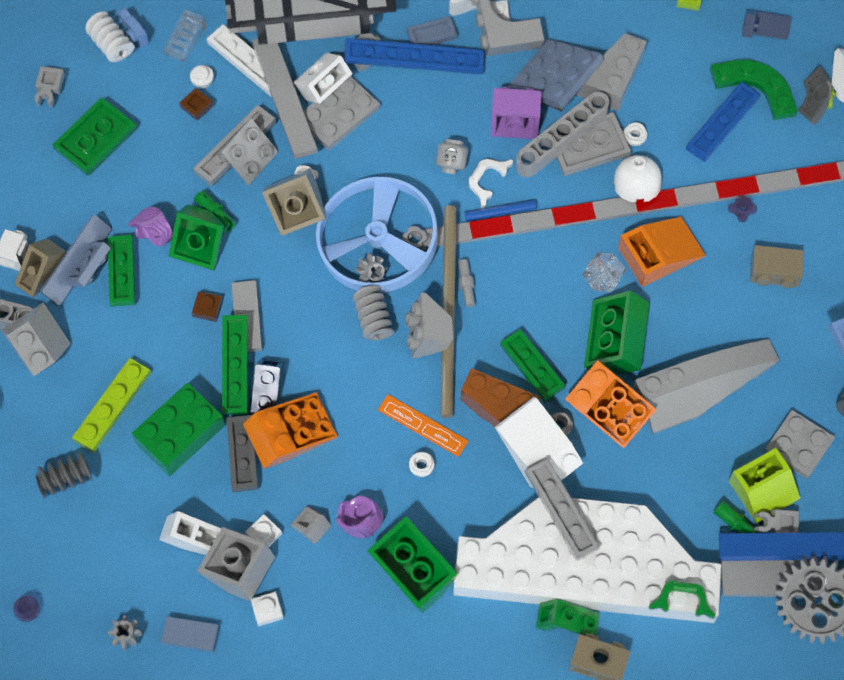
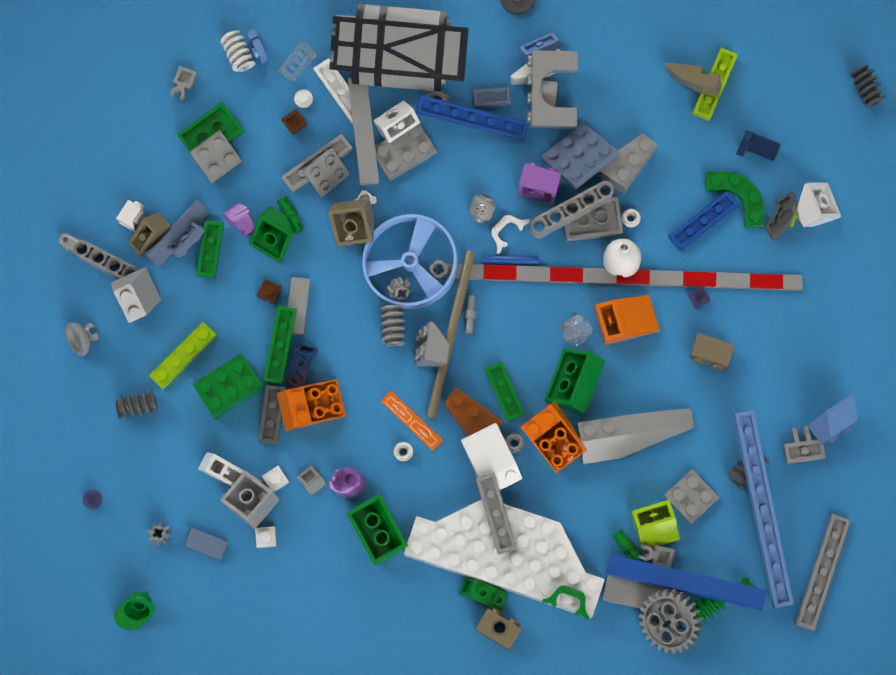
camera: 15 degrees right, 10 degrees up
(106, 160) = (215, 156): none -> light grey plate

